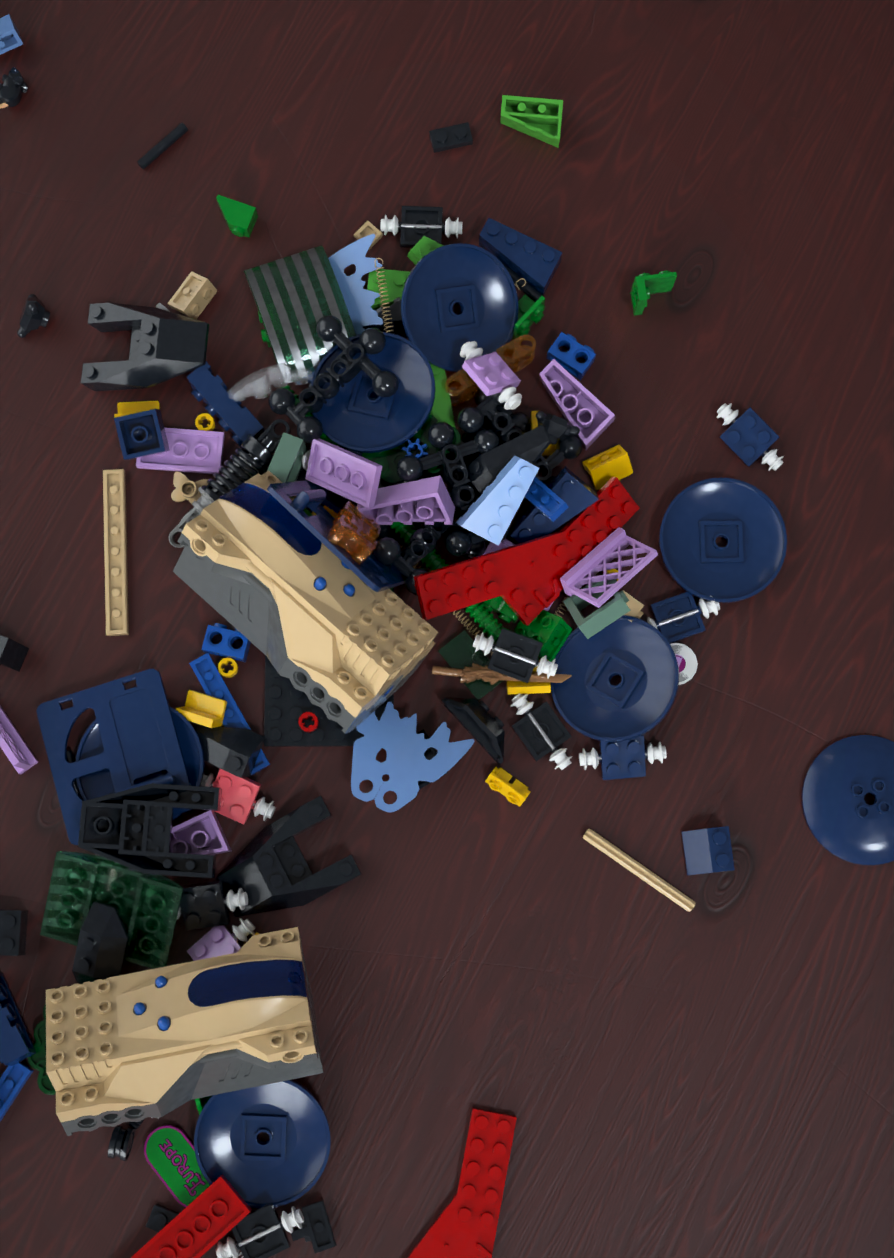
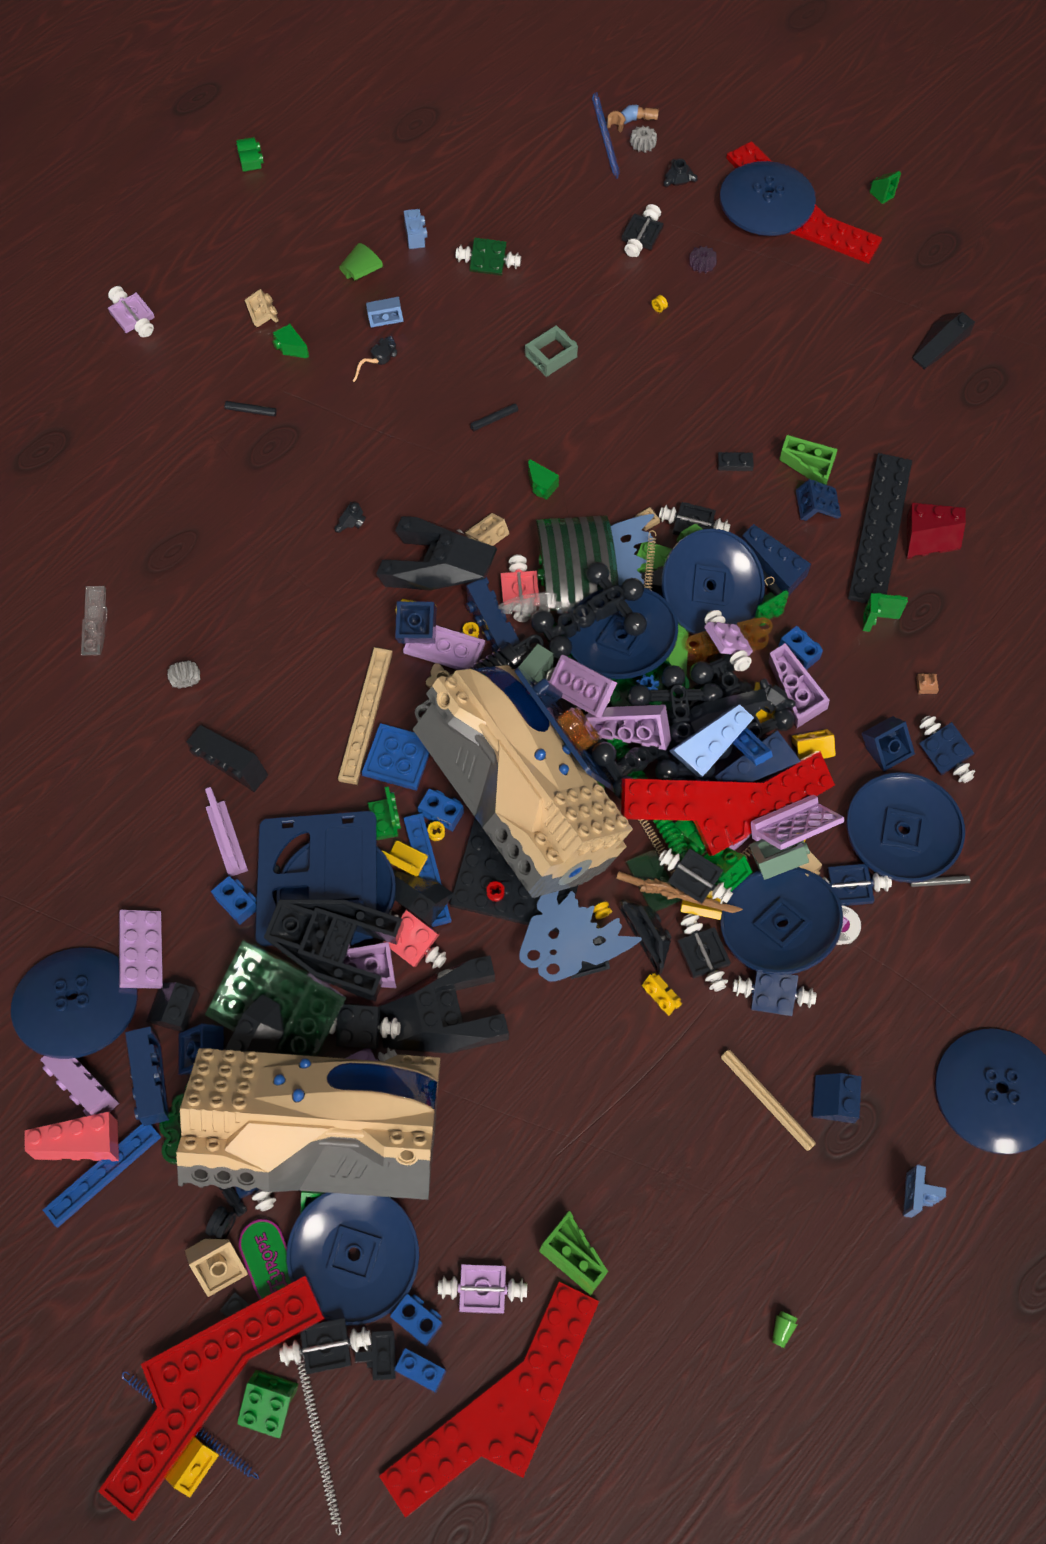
camera: 15 degrees right, 15 degrees down
(32, 804) = (231, 902): none -> blue brick
(47, 970) = (198, 1037): none -> dark blue slope
(126, 1184) = (215, 1264): none -> tan slope
(161, 596) = (396, 757): none -> blue plate
(165, 661) = (386, 815): none -> green bracket
(194, 57) = (541, 361): none -> sand green window
(244, 354) = (518, 582): none -> coral plate
(340, 1189) = (413, 1323): none -> blue brick
(359, 1231) = (420, 1370): none -> blue brick
(399, 1136) = (482, 1289): none -> lavender plate
(425, 712) = (602, 910): none -> yellow bush
(479, 1079) = (574, 1255): none -> bright green wedge
(553, 165) = (815, 498): none -> dark blue bracket
(629, 183) = (880, 527): none -> black plate
(687, 445) = (889, 742): none -> dark blue slope
(689, 172) = (934, 529): none -> dark red wedge
(701, 1095) = (784, 1327): none -> bright green cone
(715, 363) = (927, 683): none -> nougat tile
(777, 586) = (943, 881): none -> dark grey bar
(805, 931) = (919, 1194): none -> medium blue bracket

